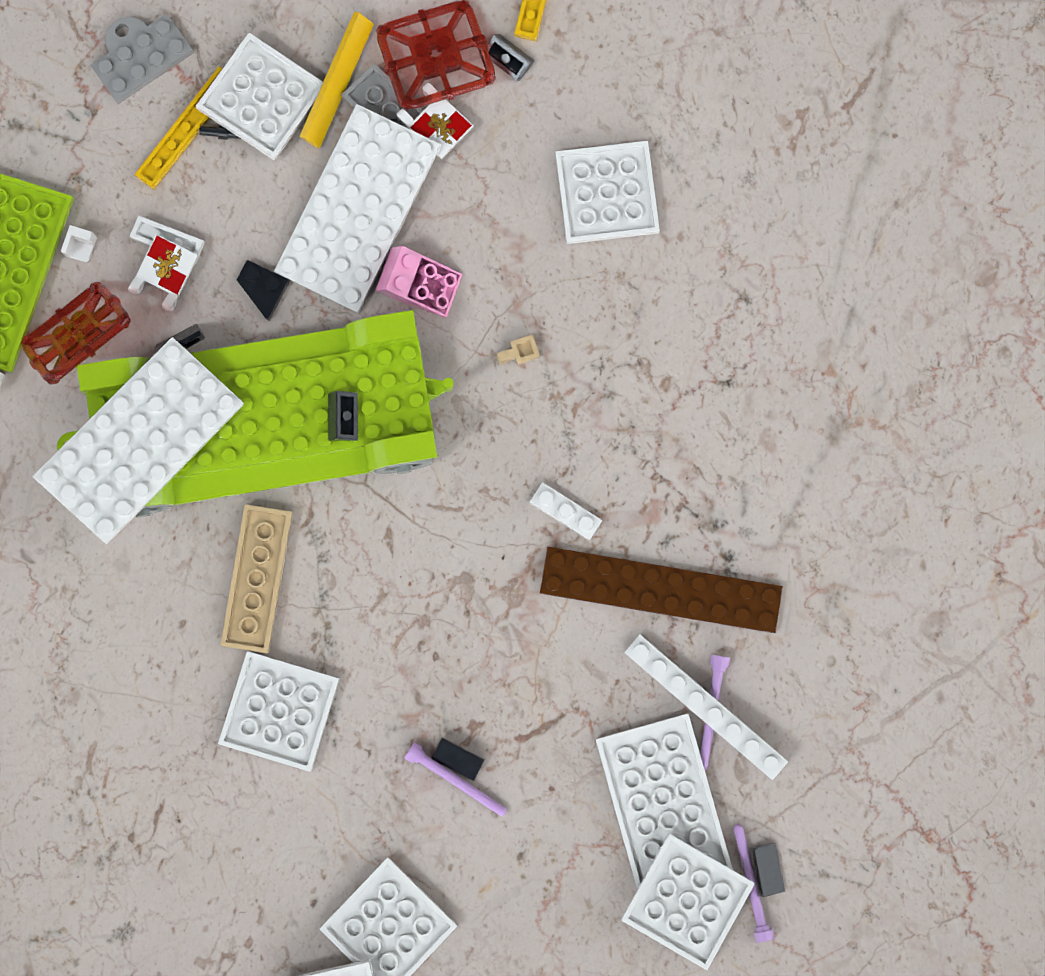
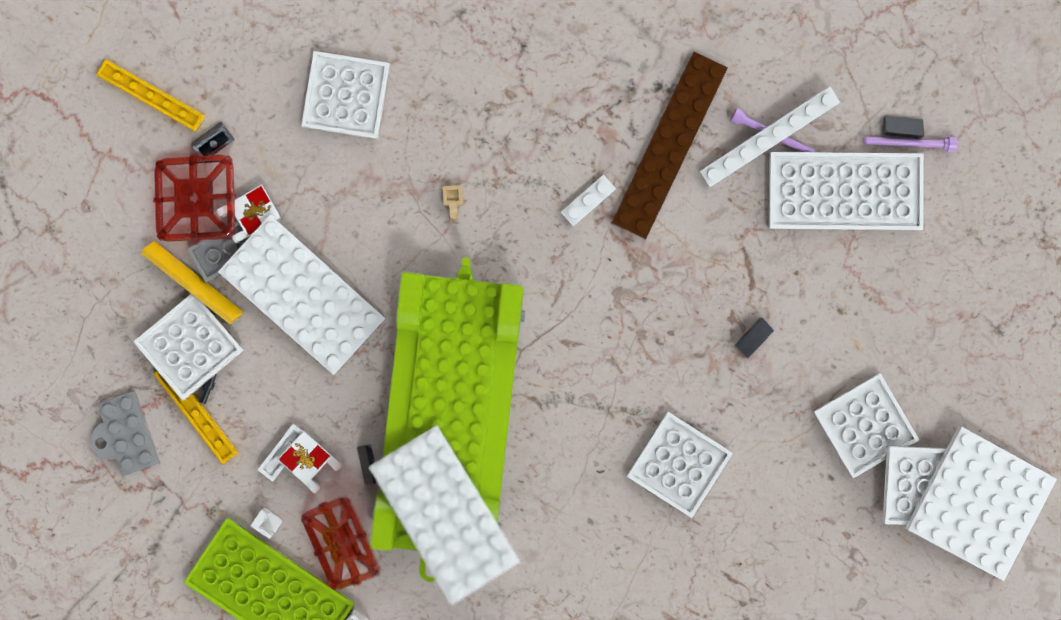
camera: 80 degrees left, 5 degrees up
(256, 579) = (572, 454): tan plate -> none
(262, 287) = (343, 387): black wing -> none
(342, 416) = (469, 351): slope -> none
(417, 755) = (742, 368): lavender piece -> none
(418, 281) = (374, 263): bright pink slope -> none
(687, 901) = (912, 193): white plate -> none

